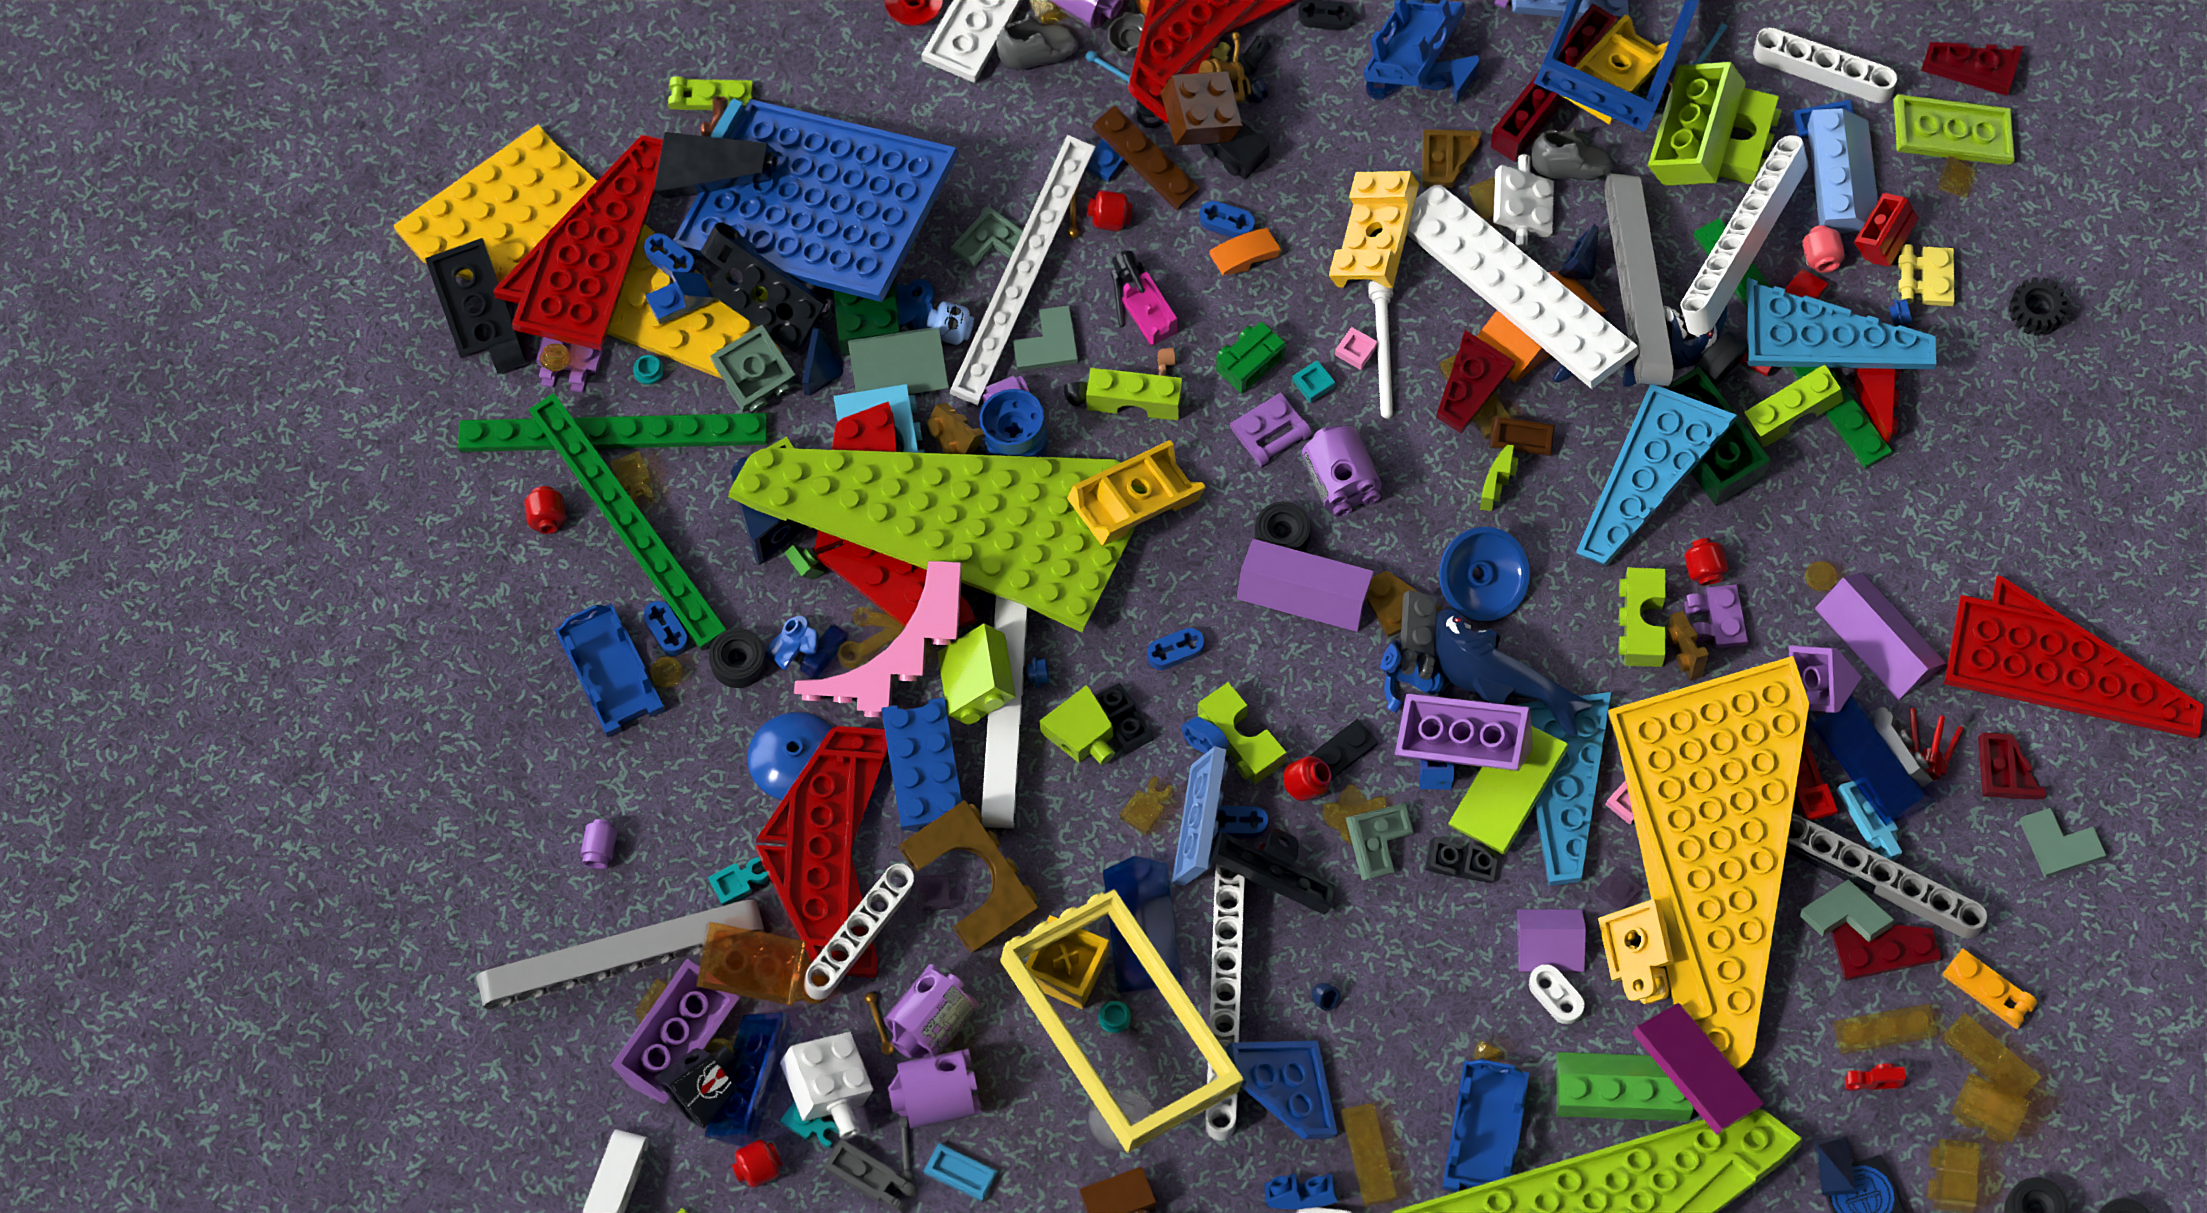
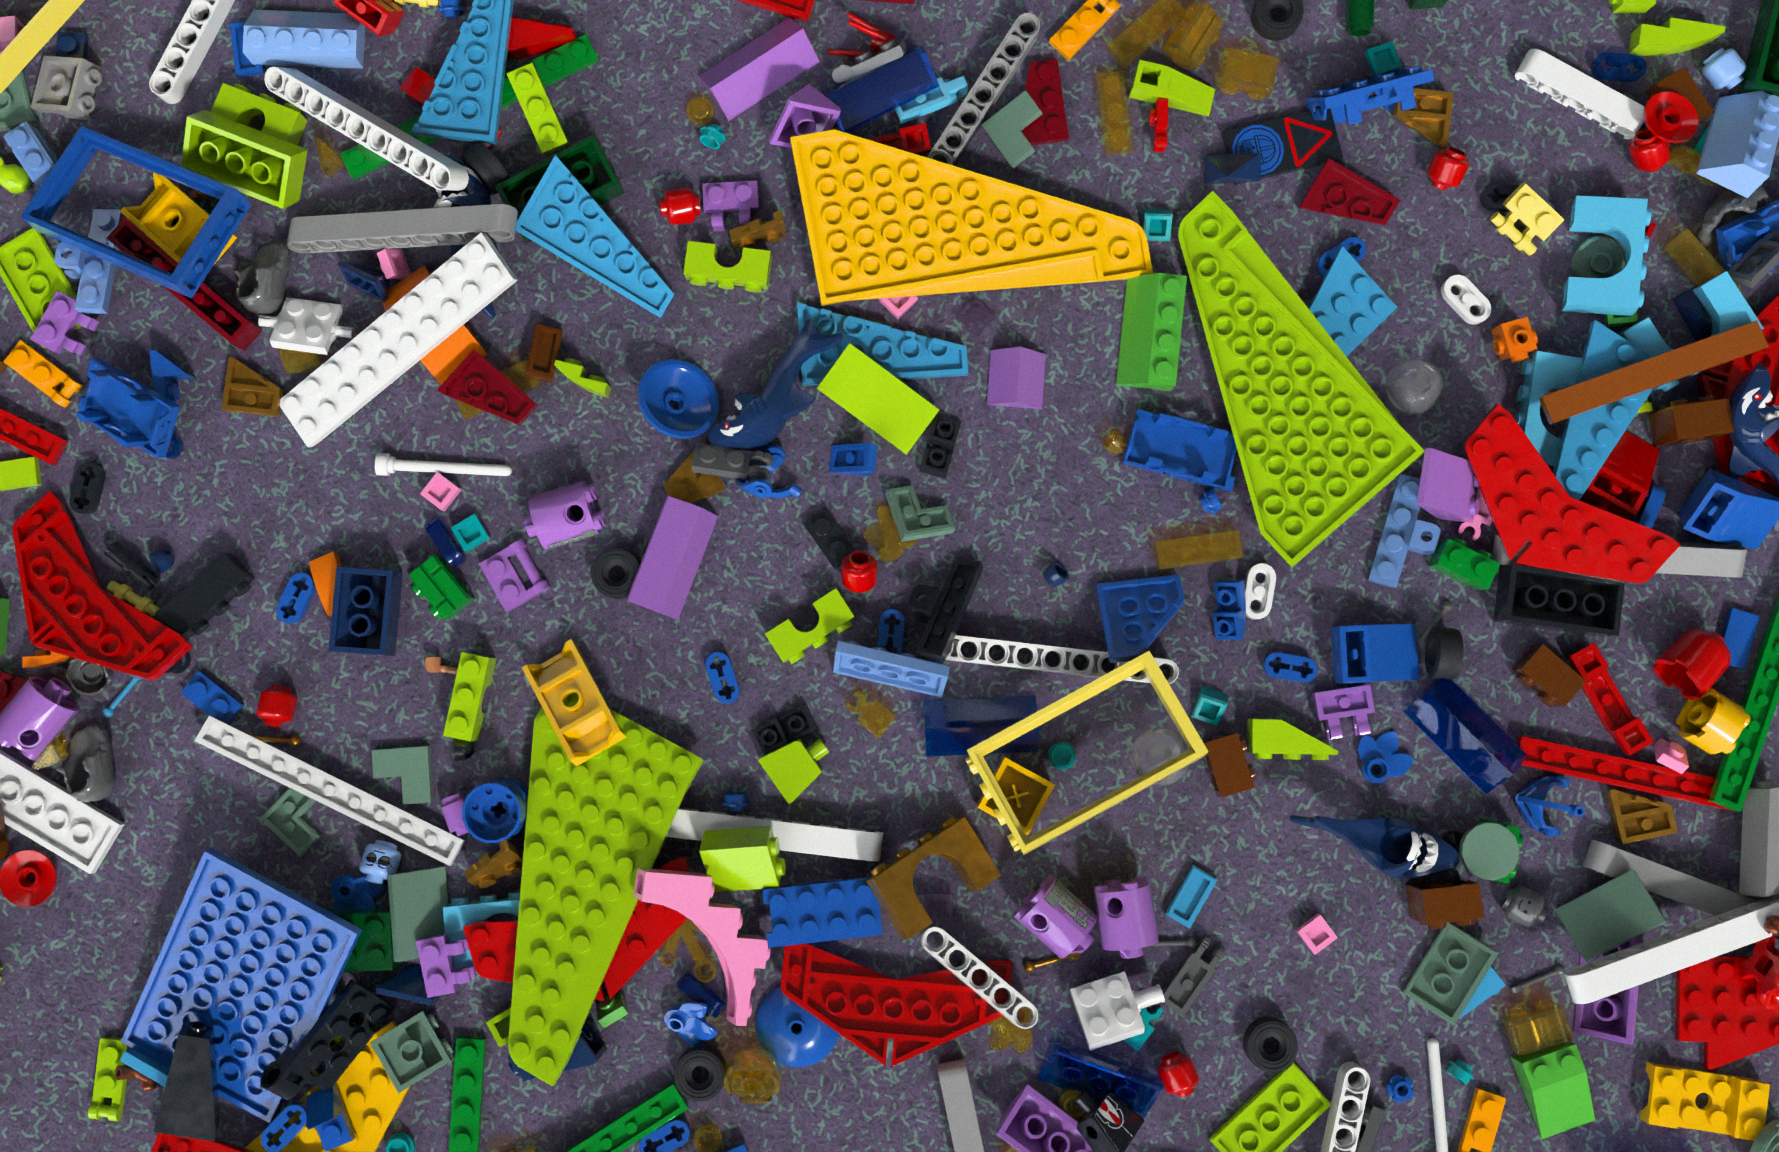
camera: 85 degrees left, 20 degrees up
(733, 884) = (916, 1084): teal plate -> none
(739, 706) = (753, 1076): none -> clear yellow cylinder
(750, 963) = (1003, 1076): clear orange slope -> none
(846, 383) = (438, 966): none -> medium lavender plate
(1128, 270) = (340, 692): black plant -> none
(1145, 157) = (223, 669): reddish brown plate -> none
(1150, 310) = (384, 676): dark pink hinge -> none
(1185, 1181) = (1210, 705): none -> teal slope
(1201, 108) = (183, 612): reddish brown brick -> none
(1203, 735) = (814, 658): blue beam -> none
(1218, 284) = (365, 611): none -> dark blue slope
(1238, 80) = (144, 592): pearl gold piece -> none
(1300, 356) = (445, 542): none -> clear blue beam
(1378, 202) = (295, 455): yellow piece -> none
(1425, 1162) = (1210, 501): none -> blue plate
(1464, 732) = (835, 430): medium lavender slope -> none
(1559, 993) = (1066, 379): white plate -> none
(1602, 280) = (393, 264): none -> bright pink plate
(1641, 964) = (1051, 302): yellow plate -> none
(1697, 1068) = (1152, 267): magenta tile -> none
(1711, 206) = (328, 160): none -> clear yellow slope
(1722, 28) = (177, 154): dark azure hinge -> none
(1762, 1083) = (1157, 224): none -> teal slope
(1793, 590) = (712, 132): none -> teal plate
(1823, 249) = (381, 65): coral head -> none
(1922, 1087) = (1183, 93): none -> lime slope

